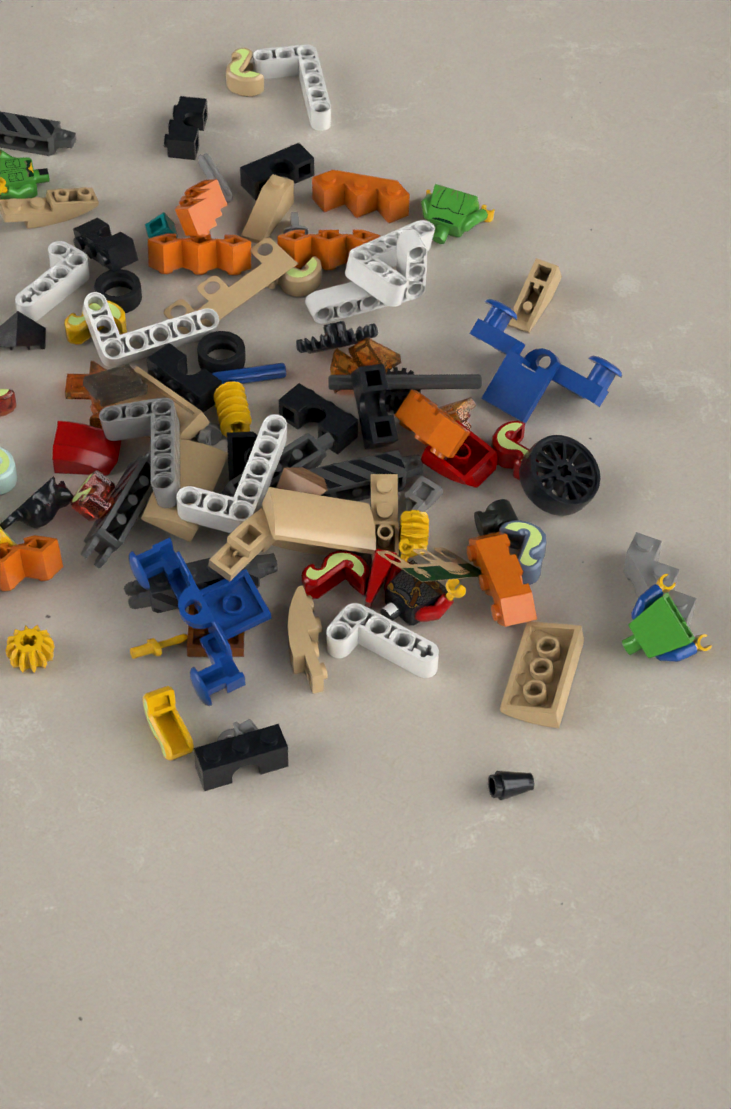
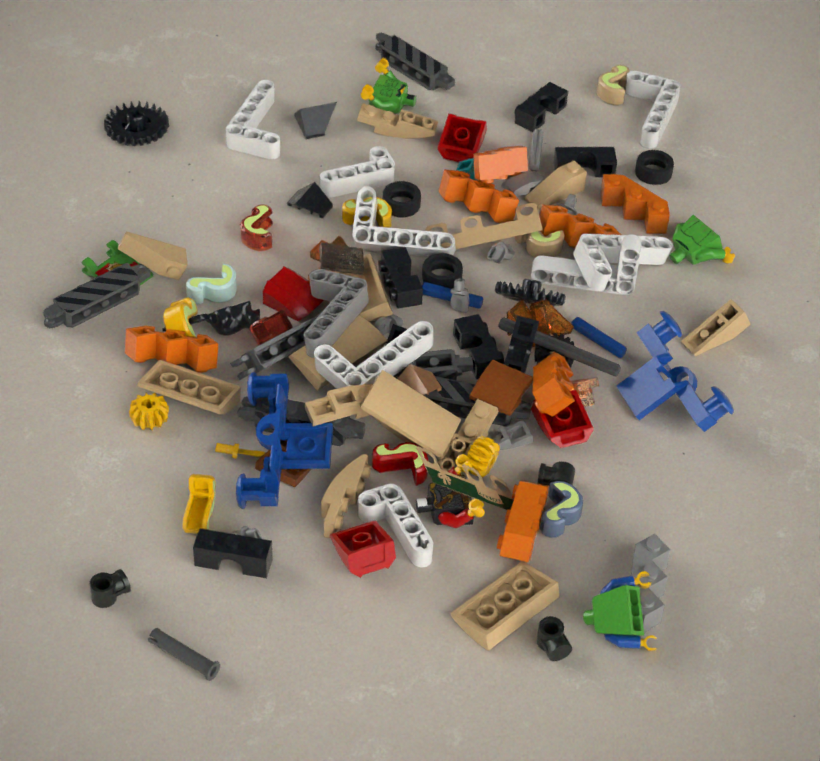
camera: 30 degrees right, 5 degrees down
(57, 601) = (191, 387): none -> tan slope
(107, 249) = (413, 163): black arch -> none
(132, 197) = (461, 138): none -> red slope
(143, 852) = (107, 587): none -> pearl dark grey piece
(232, 220) = (523, 183): none -> light grey slope
(232, 408) = (419, 308): yellow piece -> none
(262, 373) = (460, 296): none -> light grey piece
(265, 307) = (500, 252): none -> light grey piece
(270, 887) = (184, 654): none -> dark grey pin
(348, 159) = (653, 176): none -> black tyre
(369, 683) = (364, 548): none -> red slope
(378, 574) = (422, 479): red slope -> none
(384, 450) = (501, 387): none -> dark orange slope
(428, 355) = (599, 337): none -> blue axle
(507, 444) = (606, 433): red animal -> none
(508, 784) = (415, 670): black cone -> none
(559, 475) = (636, 467): black piece -> none
(618, 688) = (552, 638): none -> pearl dark grey piece

